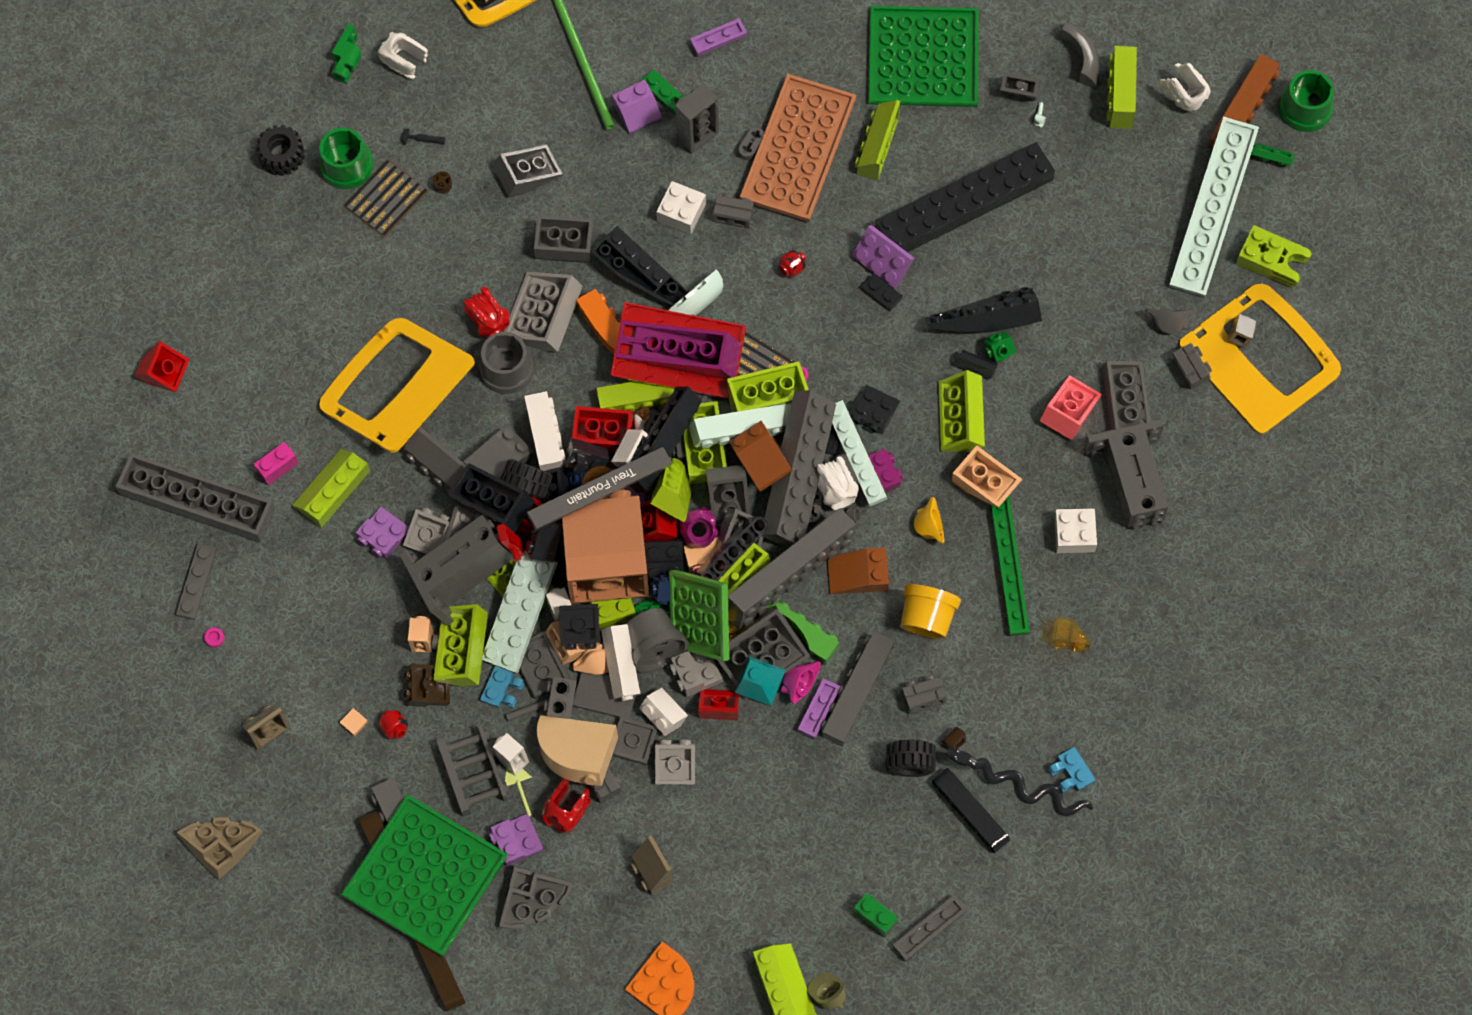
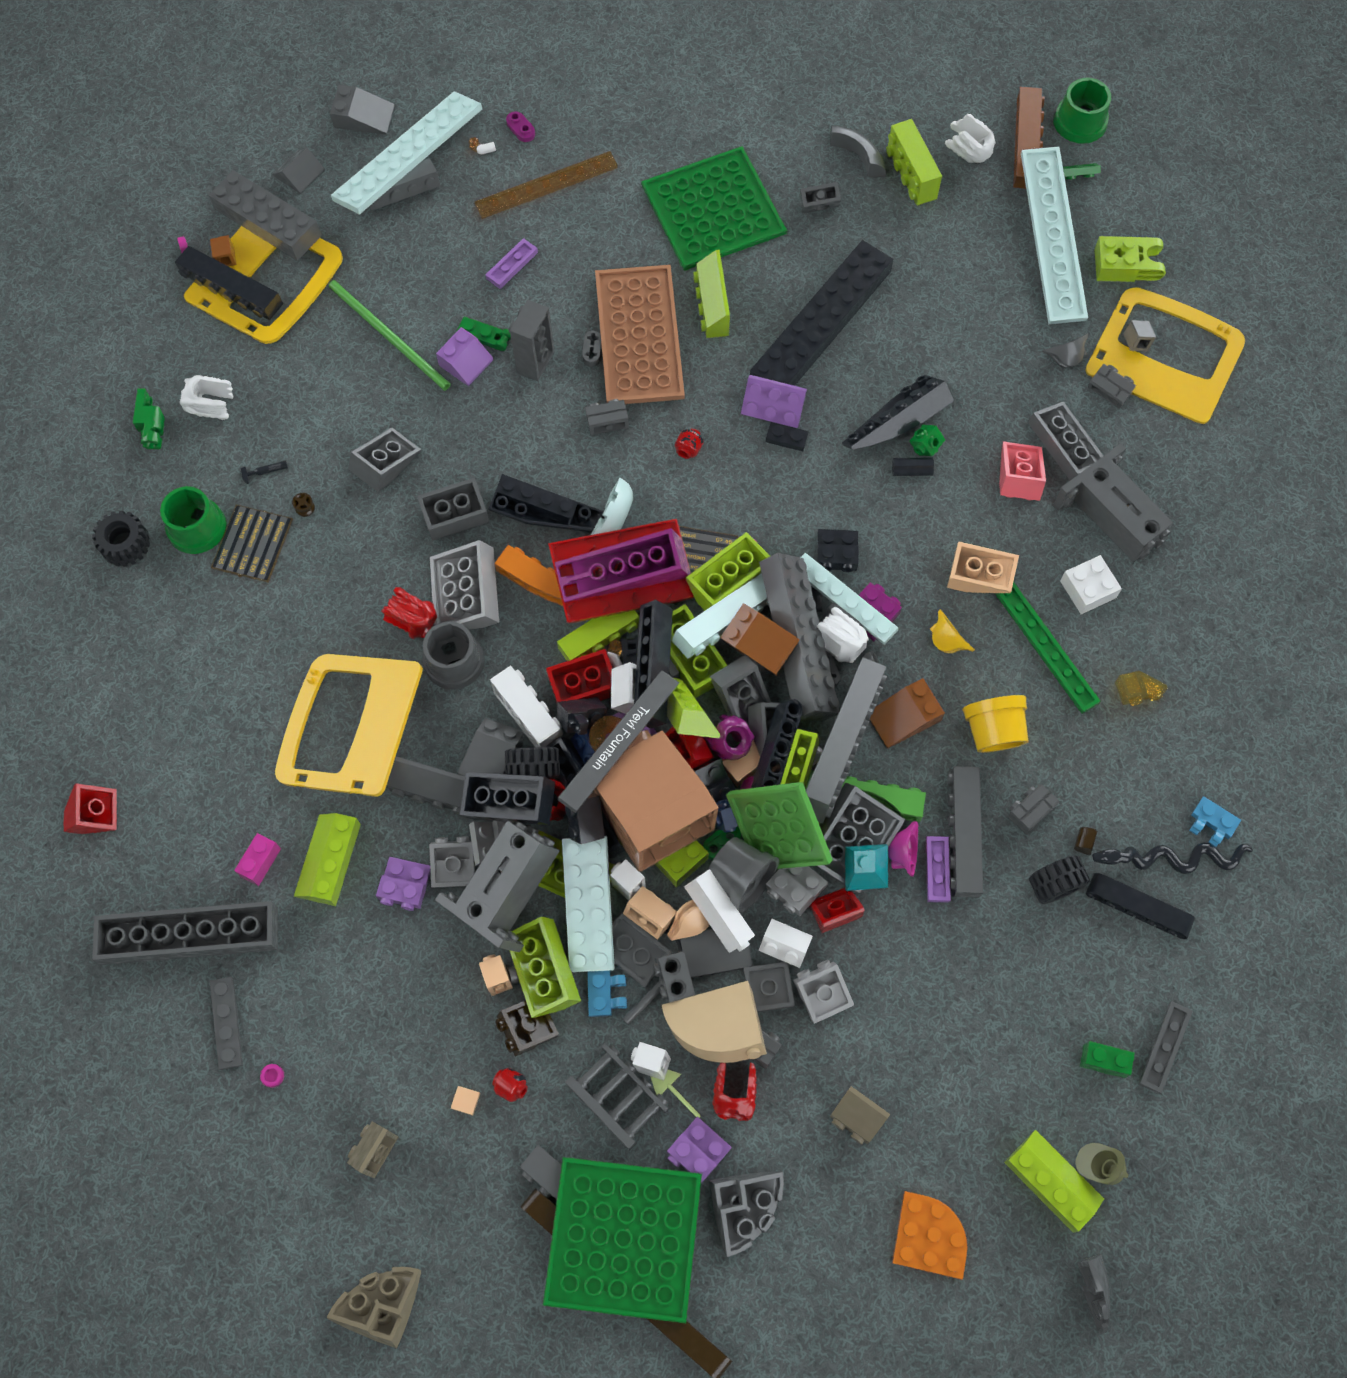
camera: 25 degrees left, 0 degrees up
(511, 541) = (551, 835): red plate -> none
(579, 626) = (661, 893): black plate -> none
(681, 208) = (554, 434): white brick -> none
(961, 412) = (923, 518): lime slope -> none
(1039, 120) = (849, 221): light aqua hand -> none

